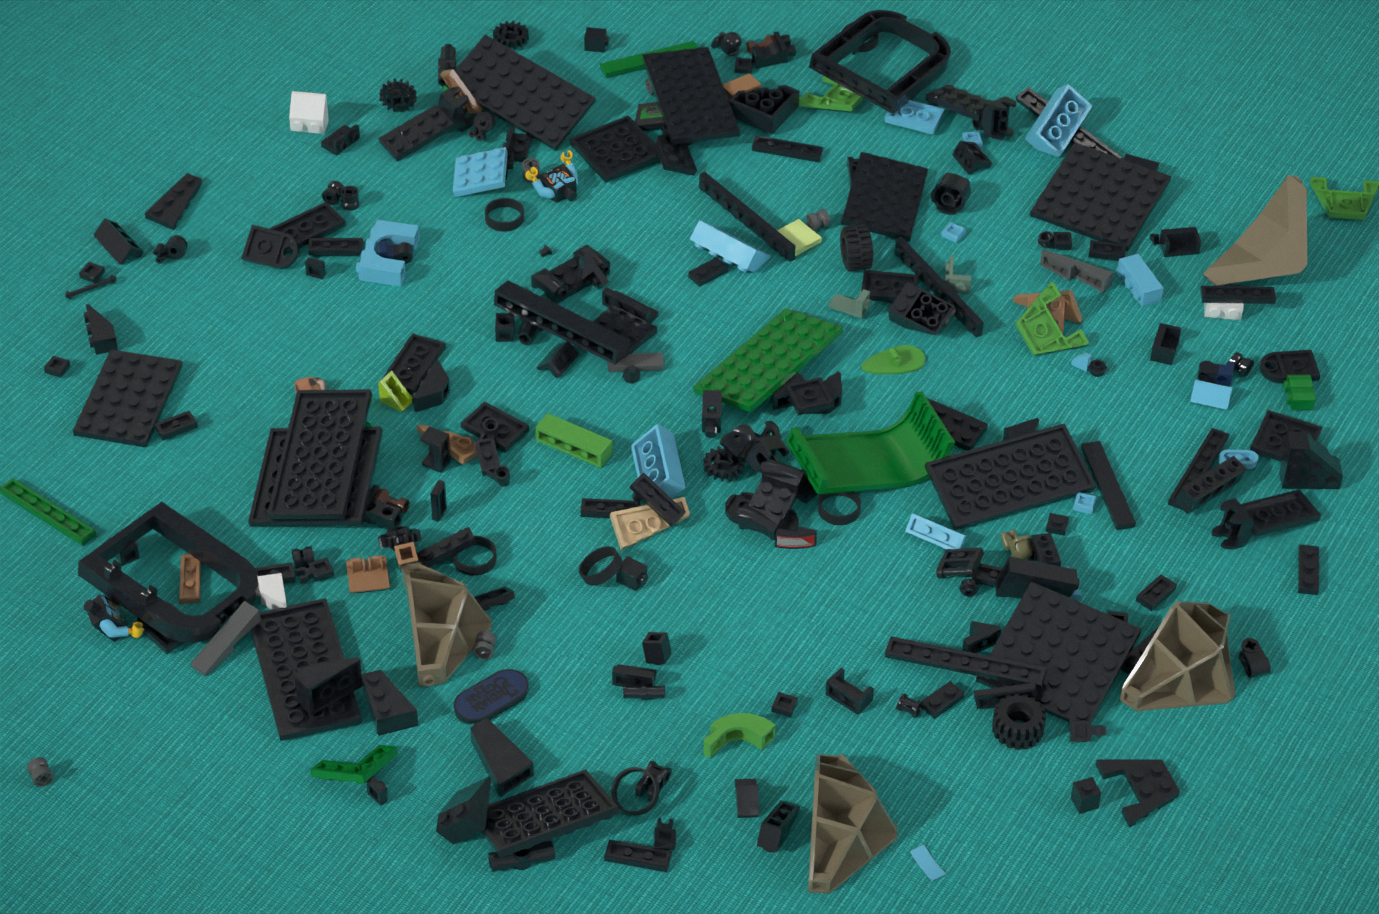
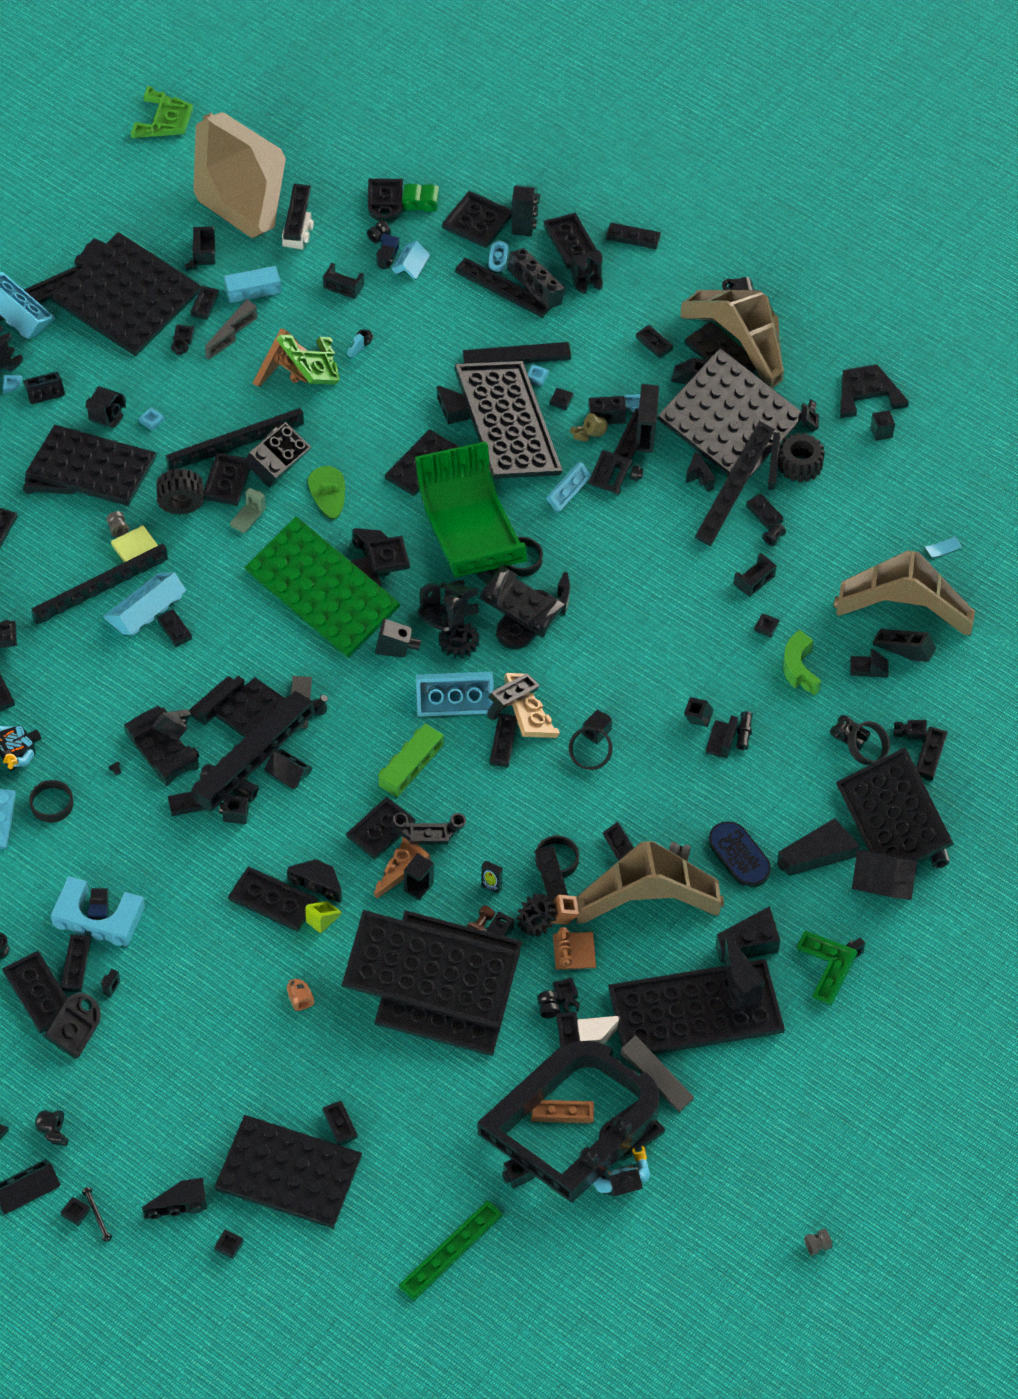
camera: 85 degrees left, 10 degrees up
(958, 283) = (222, 427): sand green bracket -> none

